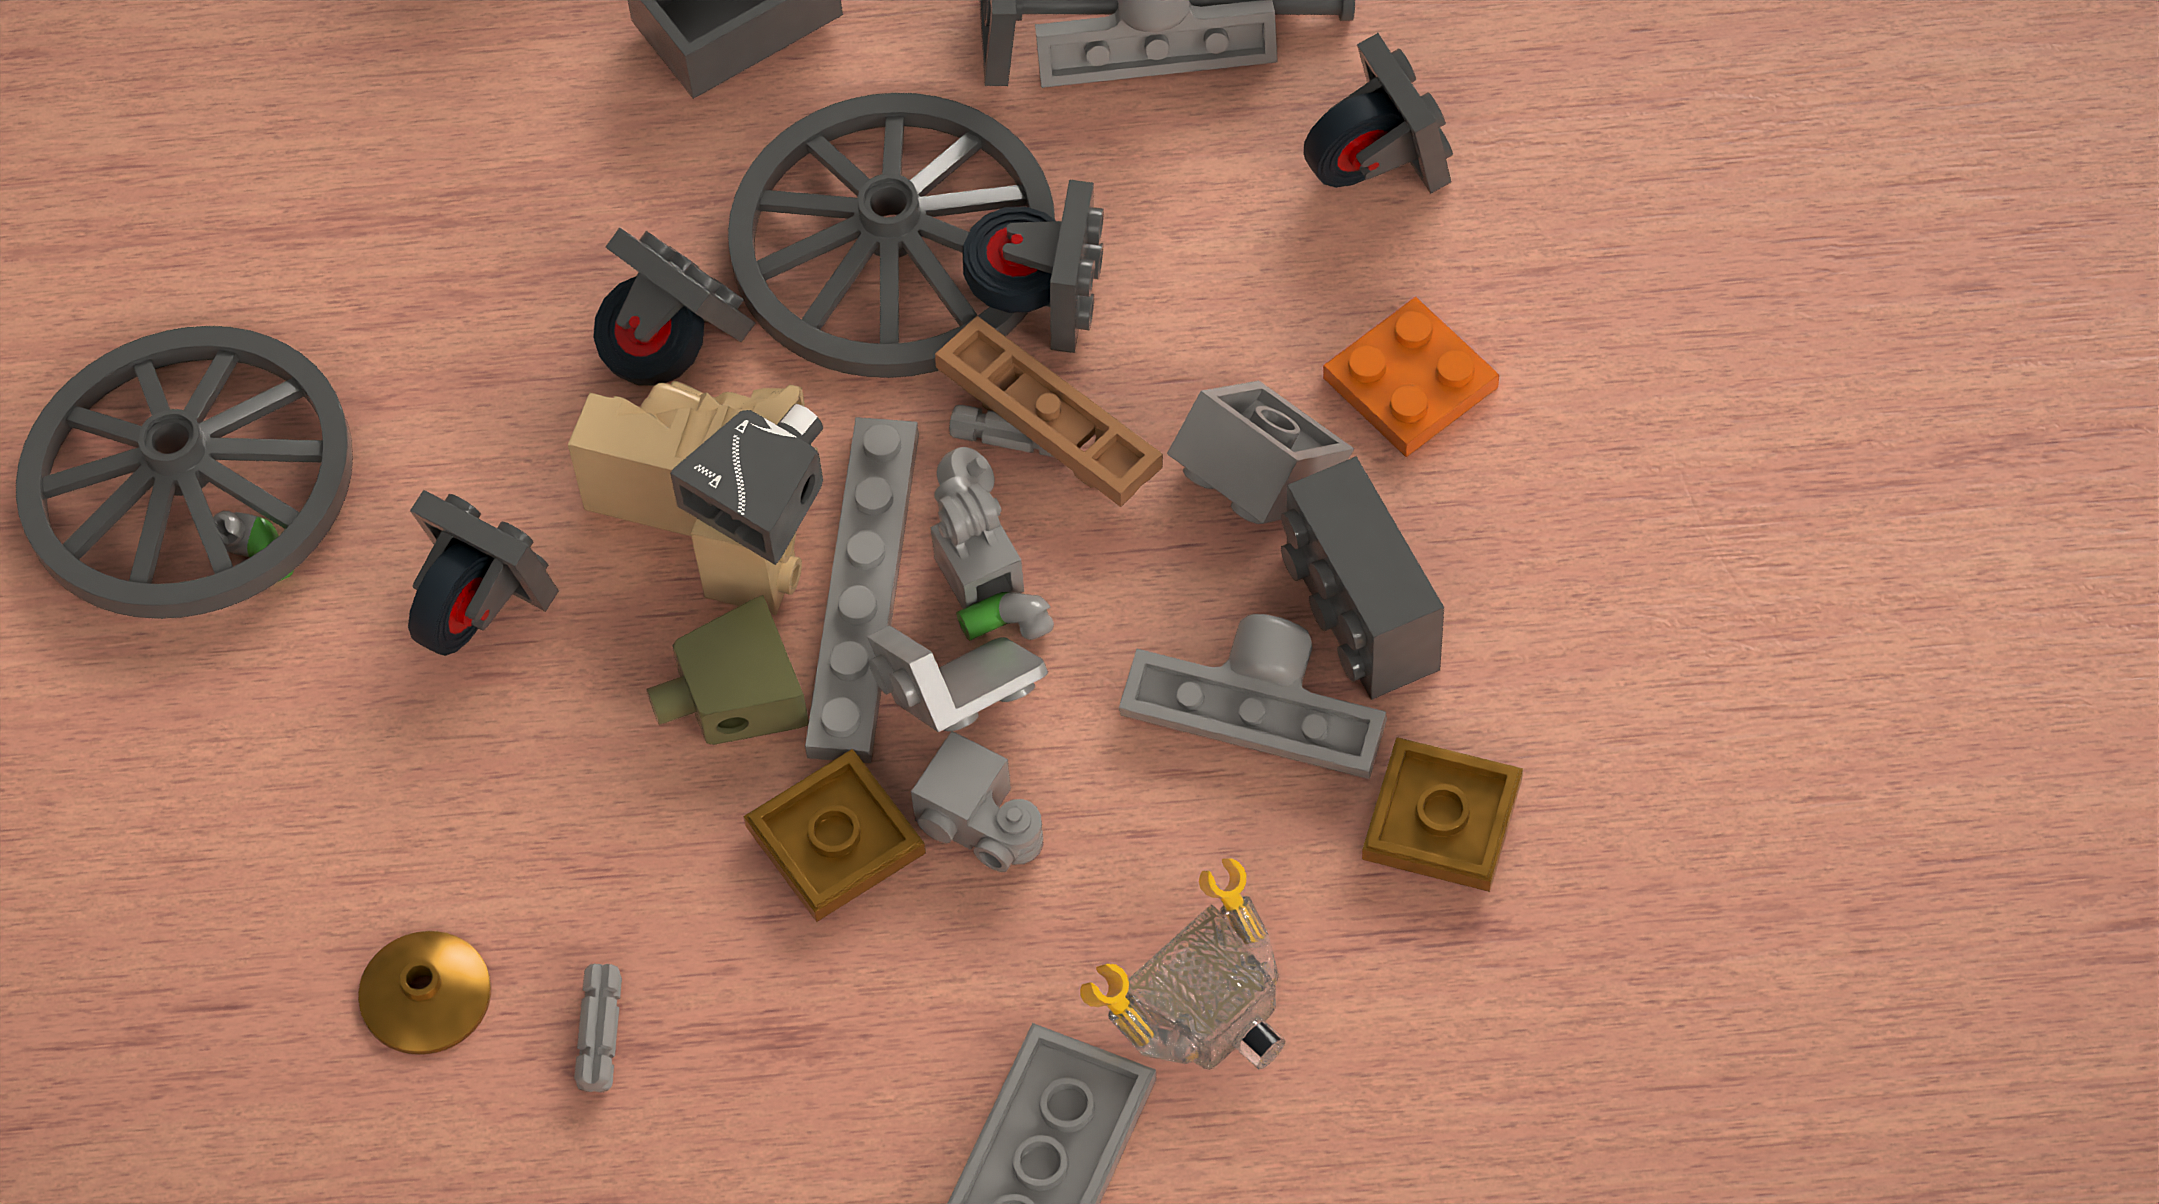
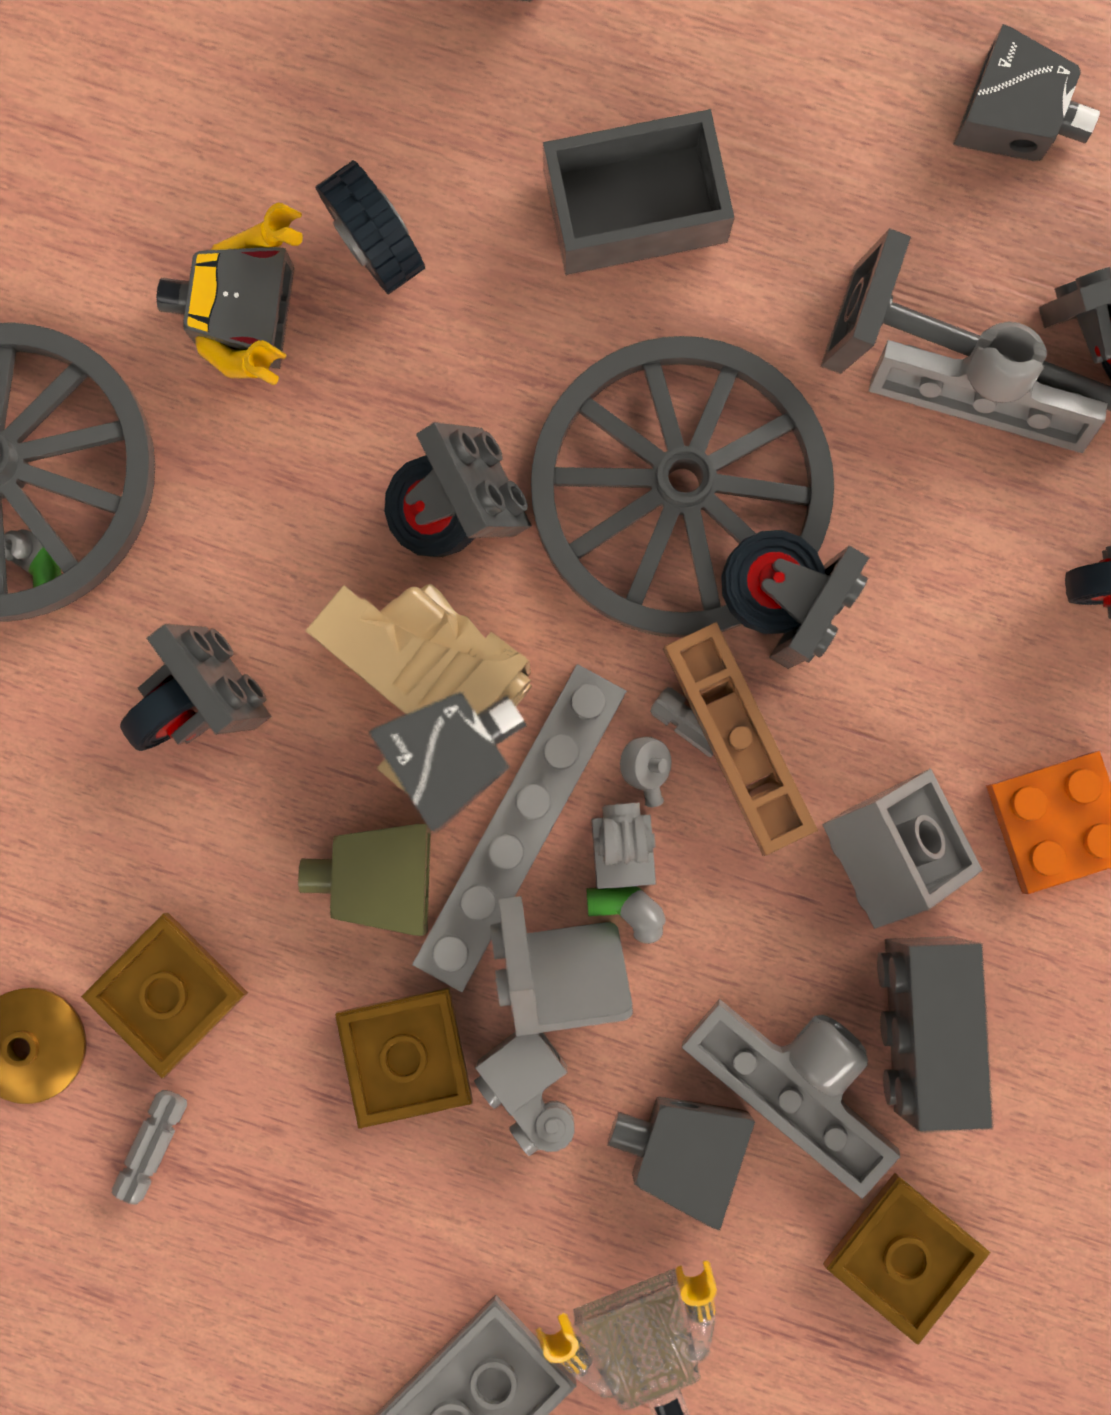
camera: 20 degrees right, 25 degrees up
(372, 225) = (239, 297): none -> torso
(482, 112) = (370, 227): none -> black wheel
(554, 875) = (164, 994): none -> pearl gold plate
(1168, 803) = (686, 1154): none -> dark grey torso

